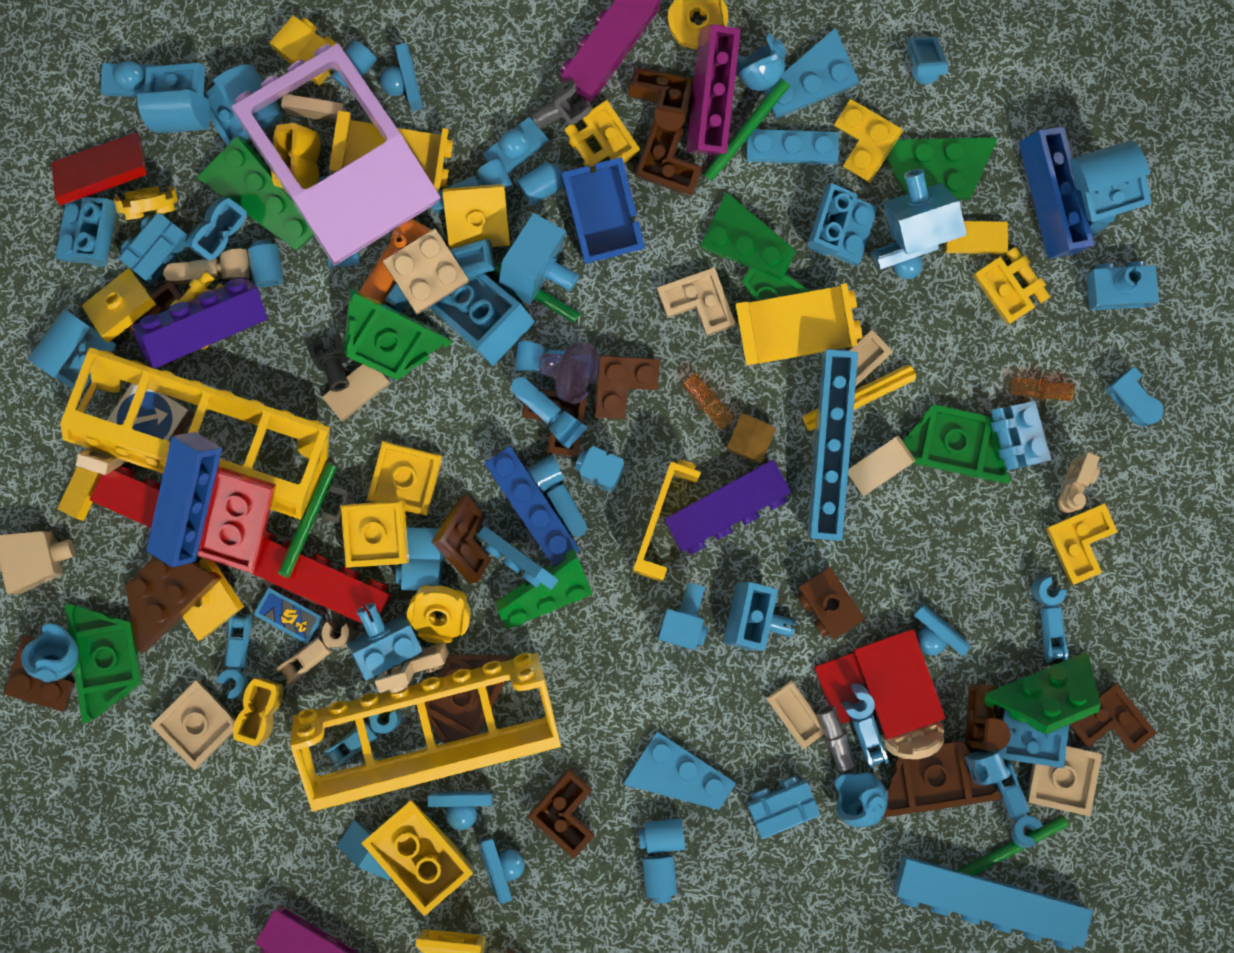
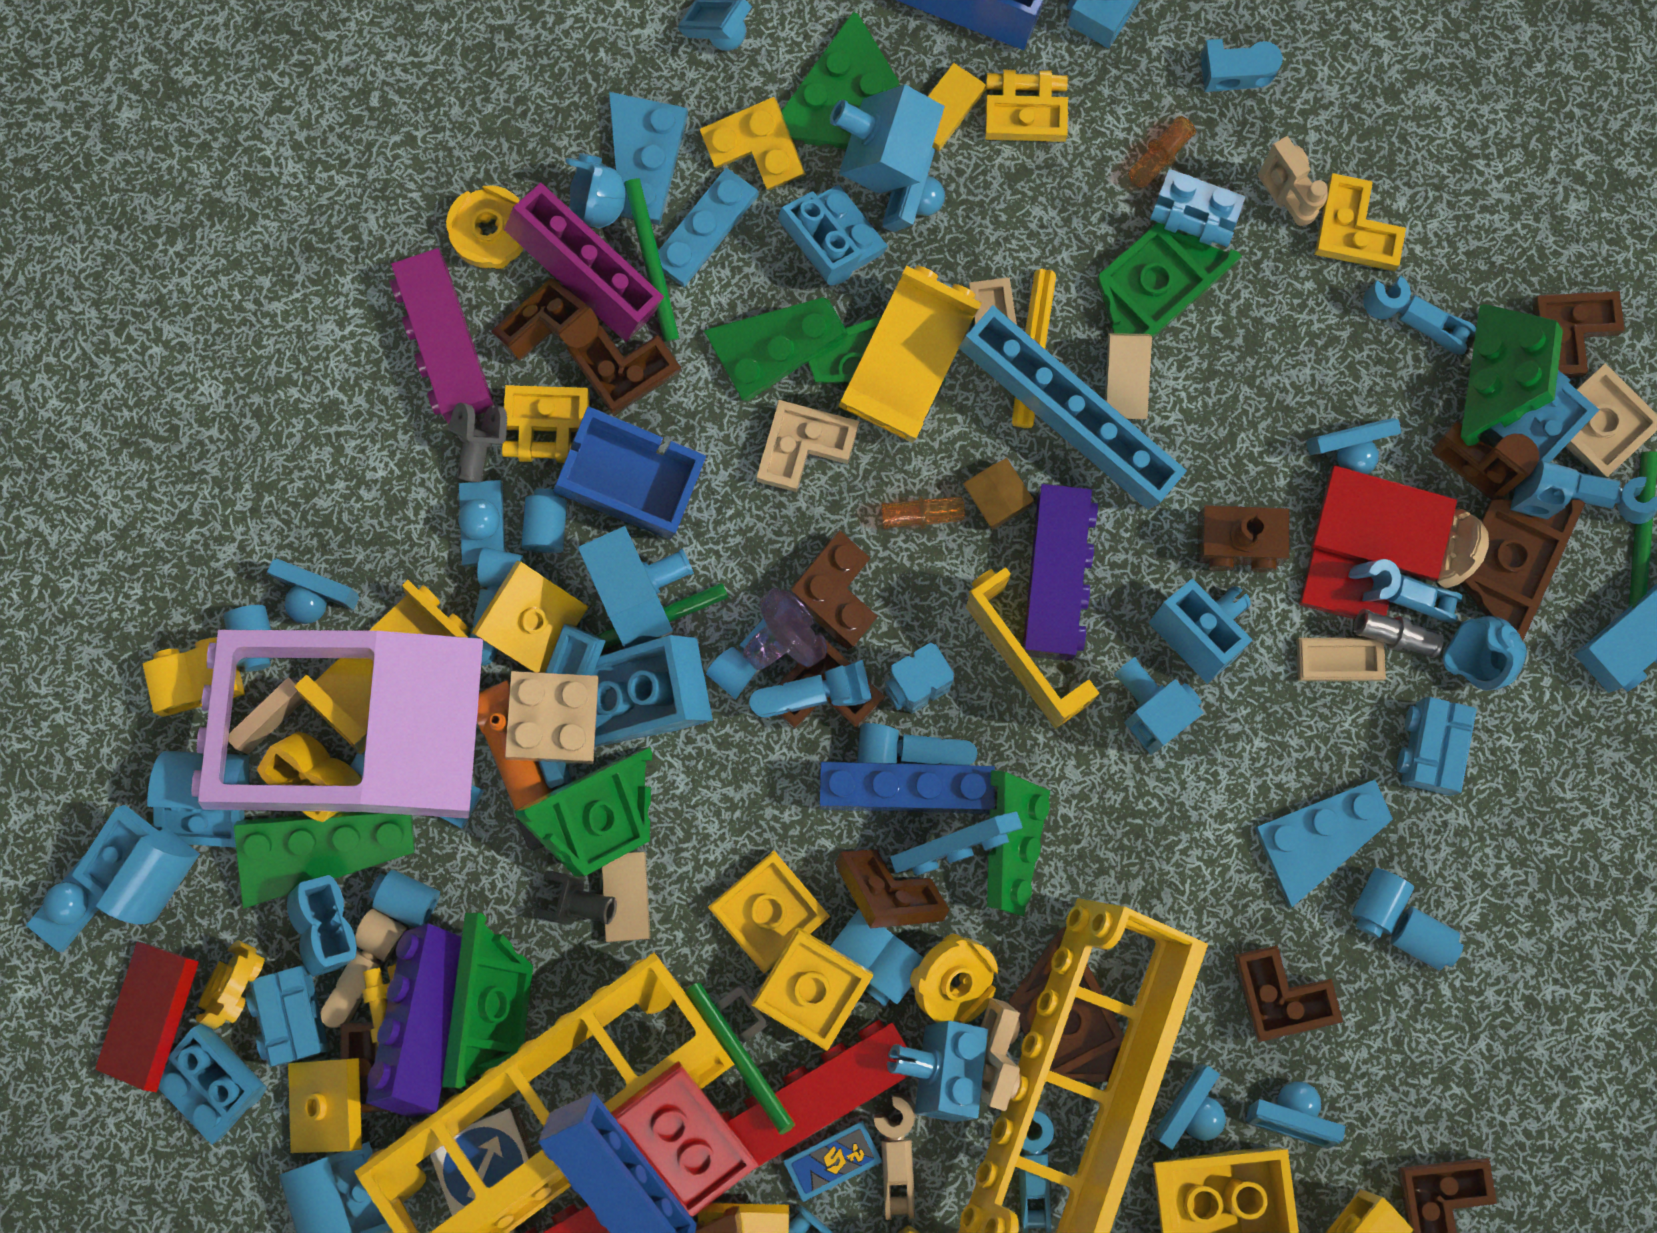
camera: 55 degrees left, 5 degrees down
(237, 354) = (487, 1003): none -> green wing

